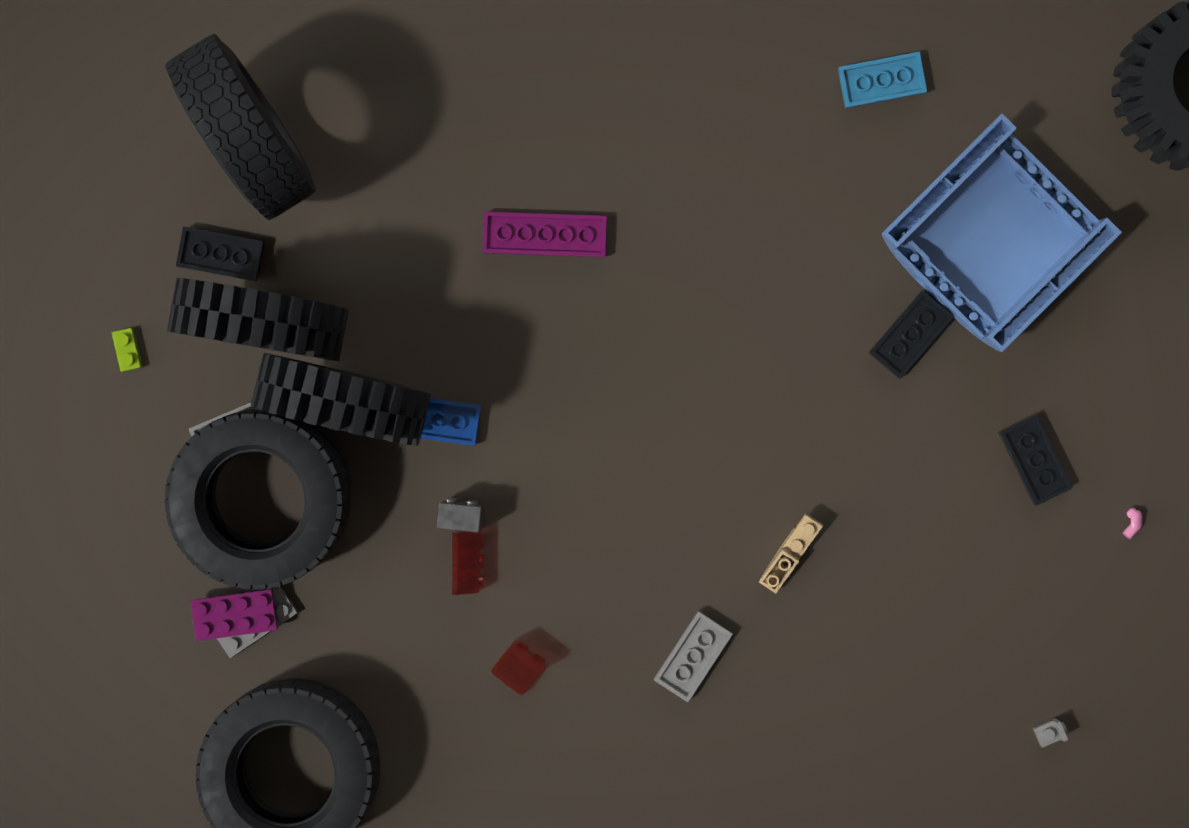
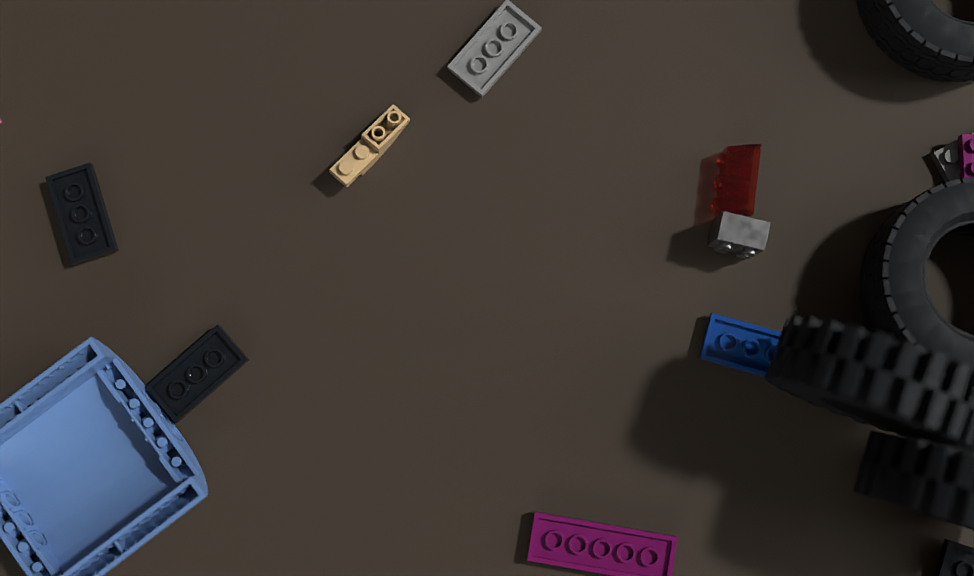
camera: 165 degrees left, 5 degrees down
(519, 667) = (689, 60): clear red bracket -> none

